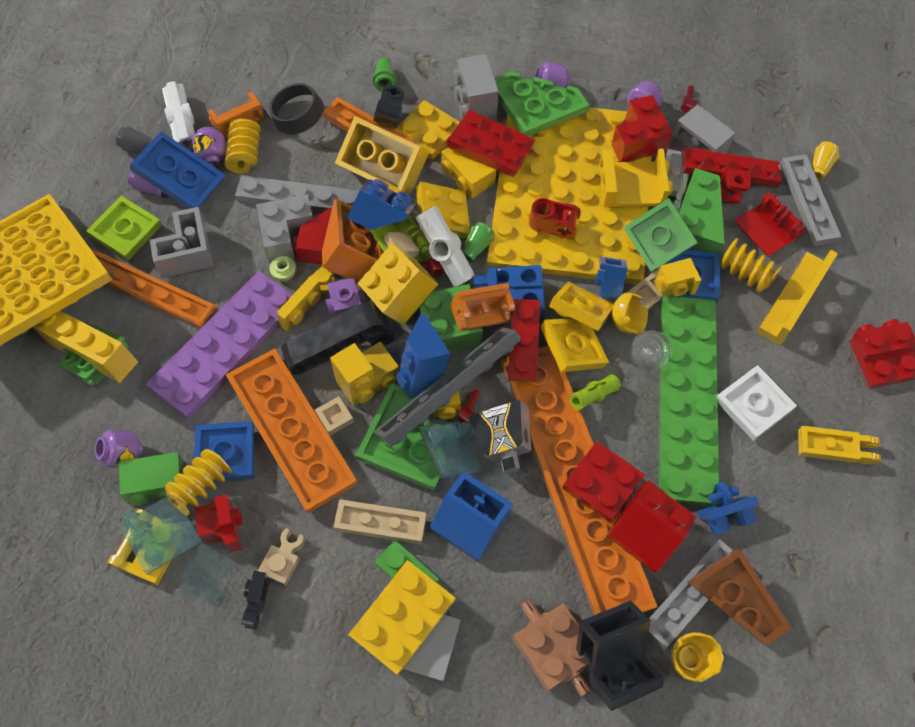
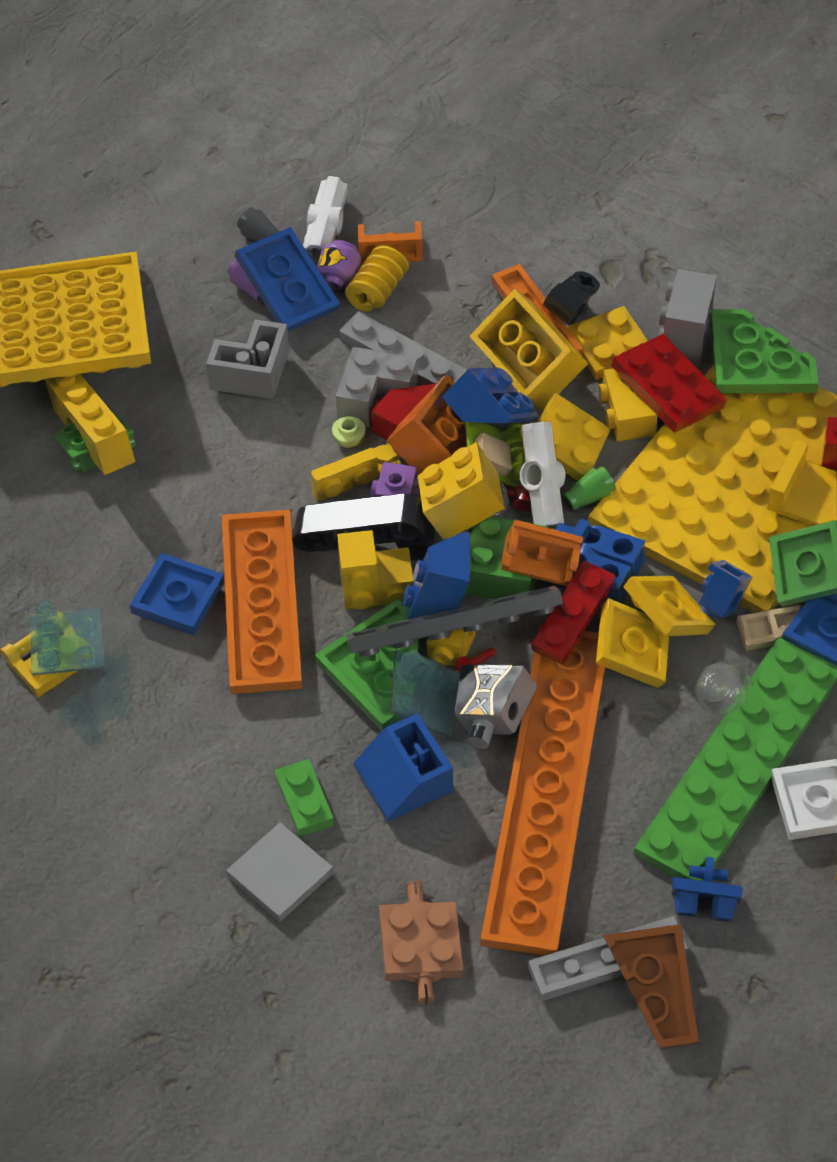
camera: 30 degrees right, 10 degrees down
(116, 447) = (69, 542): medium lavender head -> none
(124, 228) = (197, 319): lime plate -> none
(146, 477) = (89, 584): bright green brick -> none
(156, 292) = (194, 401): orange tile -> none
(196, 479) = (129, 601): yellow piece -> none
(220, 346) = (234, 485): medium lavender plate -> none
(220, 523) = (133, 660): red brick -> none
(256, 594) = (132, 747): black plate -> none
(281, 561) = (178, 728): tan plate -> none
(305, 120) = (468, 275): black tyre -> none
(334, 416) = (315, 607): tan plate -> none
(380, 521) = (304, 734): tan plate -> none
(383, 74) = (592, 258): bright green cone -> none
(402, 617) = (270, 832): yellow plate -> none
(554, 73) = (801, 333): medium lavender head -> none
(554, 218) = (693, 494): red piece -> none
(594, 392) = (625, 703): lime pin -> none
(603, 481) = (574, 797): red plate -> none
(616, 655) = (480, 969): black piece -> none
(629, 314) = (722, 637): yellow hair -> none
(651, 526) = (599, 864): red slope -> none
(677, 278) = (799, 619): yellow brick -> none
(696, 657) = (568, 1017): yellow hair -> none

